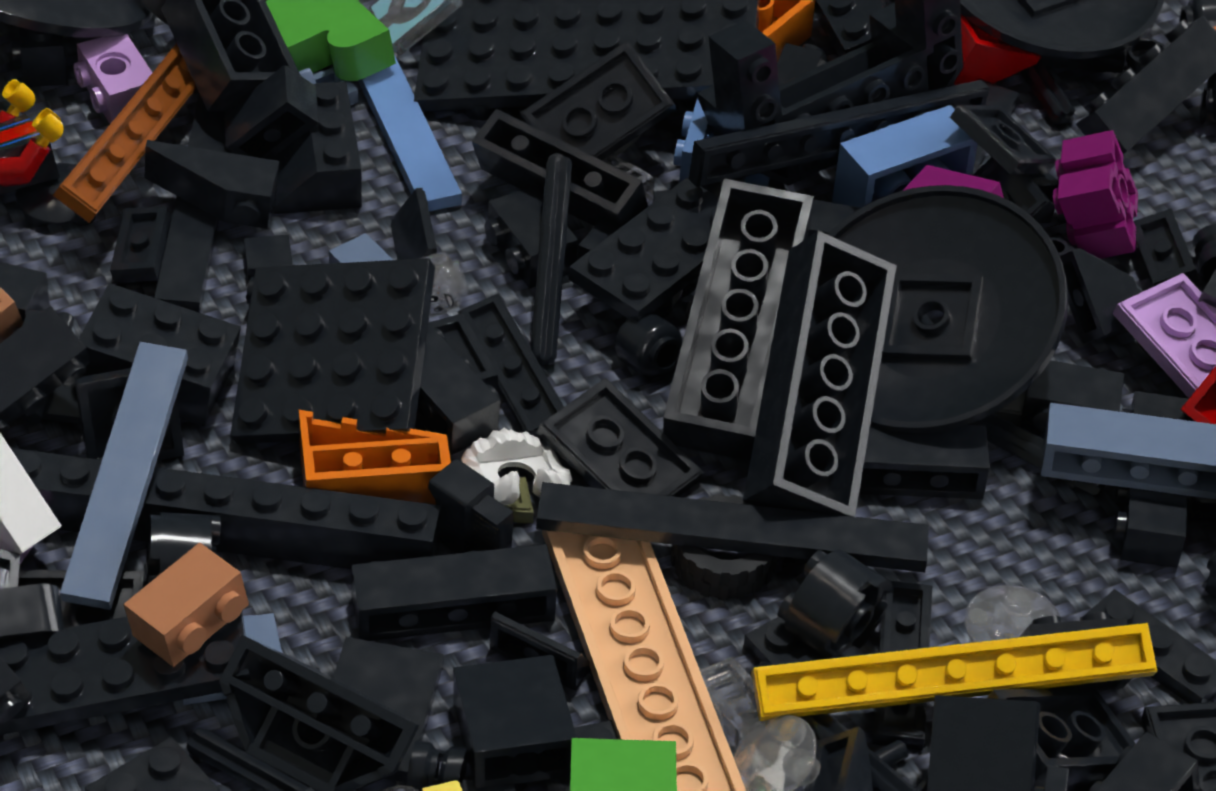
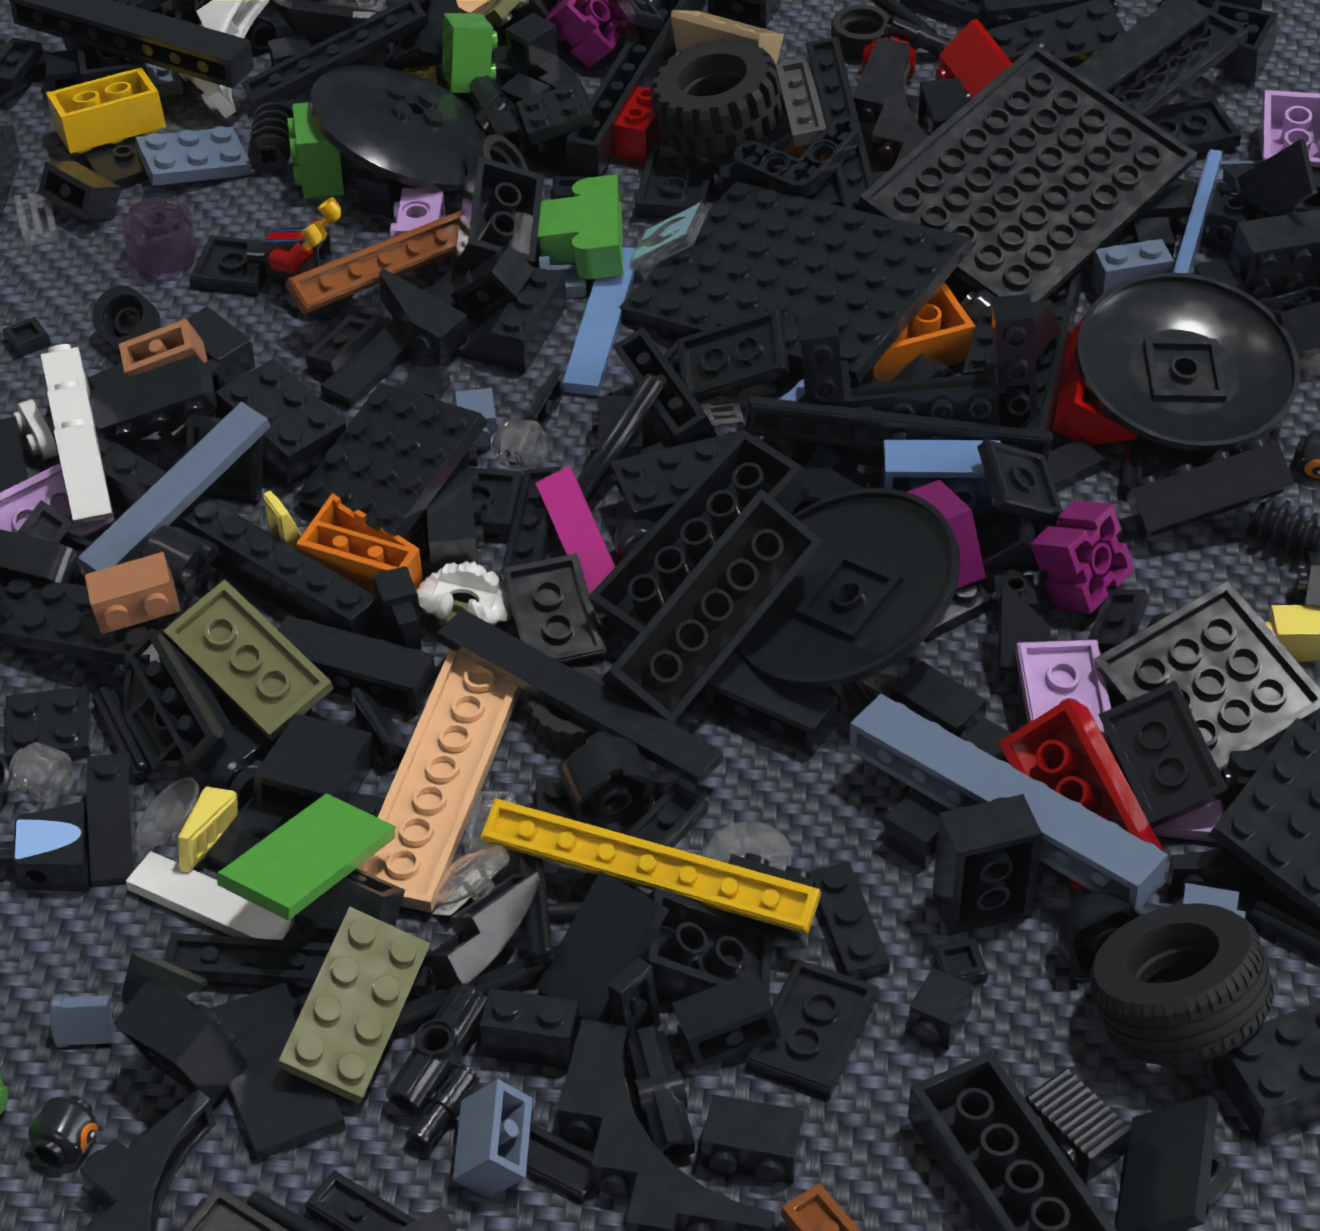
camera: 35 degrees right, 0 degrees up
(265, 461) = (279, 520): none -> light yellow slope
(358, 629) = (248, 659): none -> olive plate
(580, 352) = (576, 525): none -> dark pink tile

